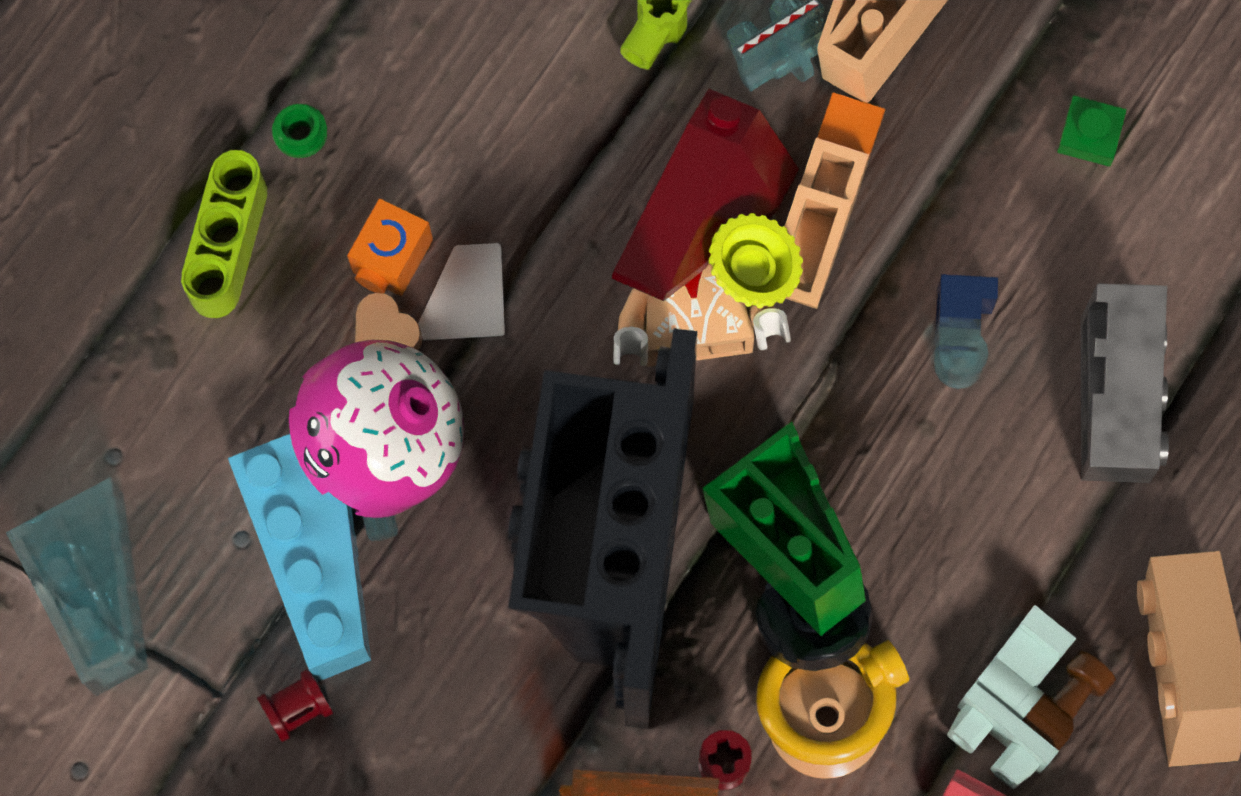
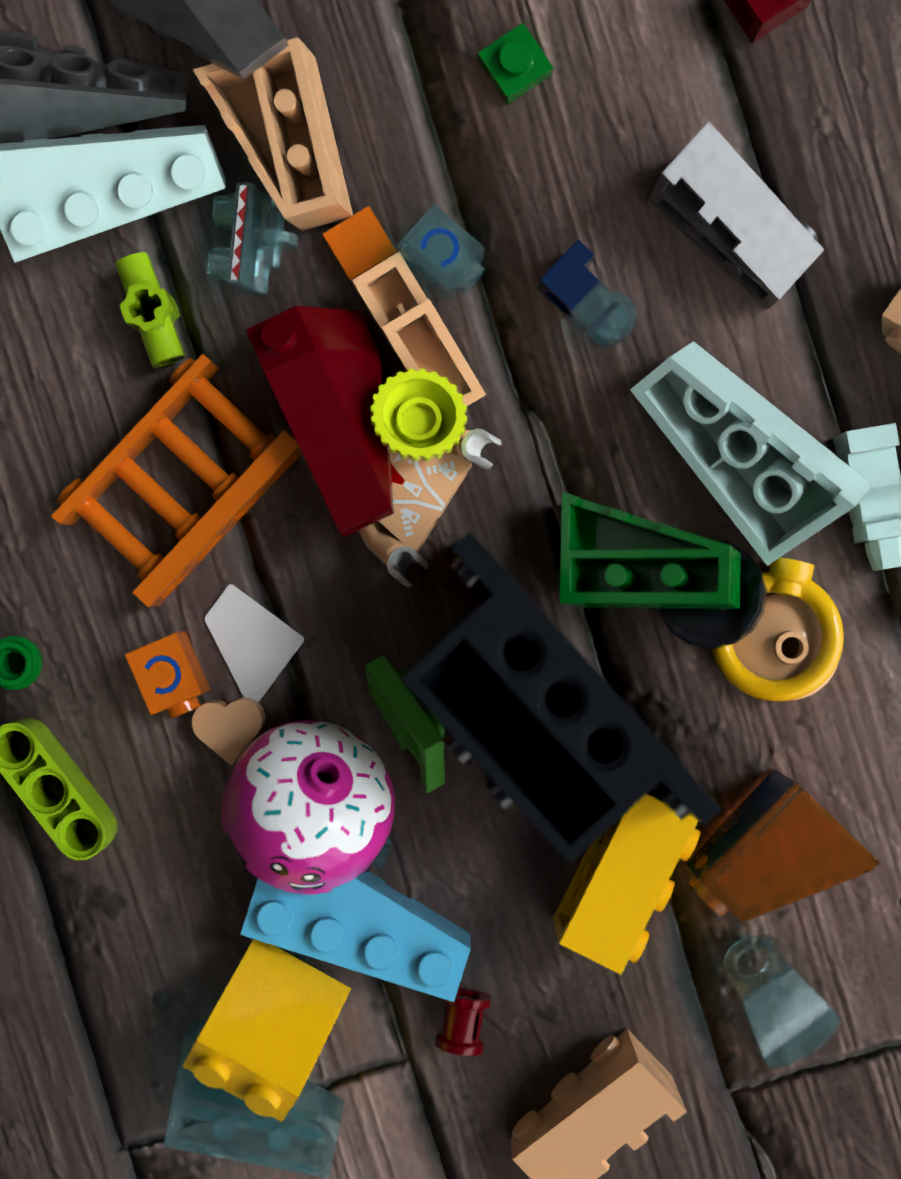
camera: 55 degrees left, 15 degrees up
(168, 538) = (267, 1030): none -> yellow brick
(501, 466) = (407, 721): none -> bright green wing
(517, 183) = (195, 533): none -> orange fence
(528, 723) = (623, 882): none -> yellow brick
(736, 746) = (761, 764): dark red bush -> none
(897, 190) = (443, 253): none -> clear light blue brick
(948, 542) = (748, 453): none -> light aqua wedge

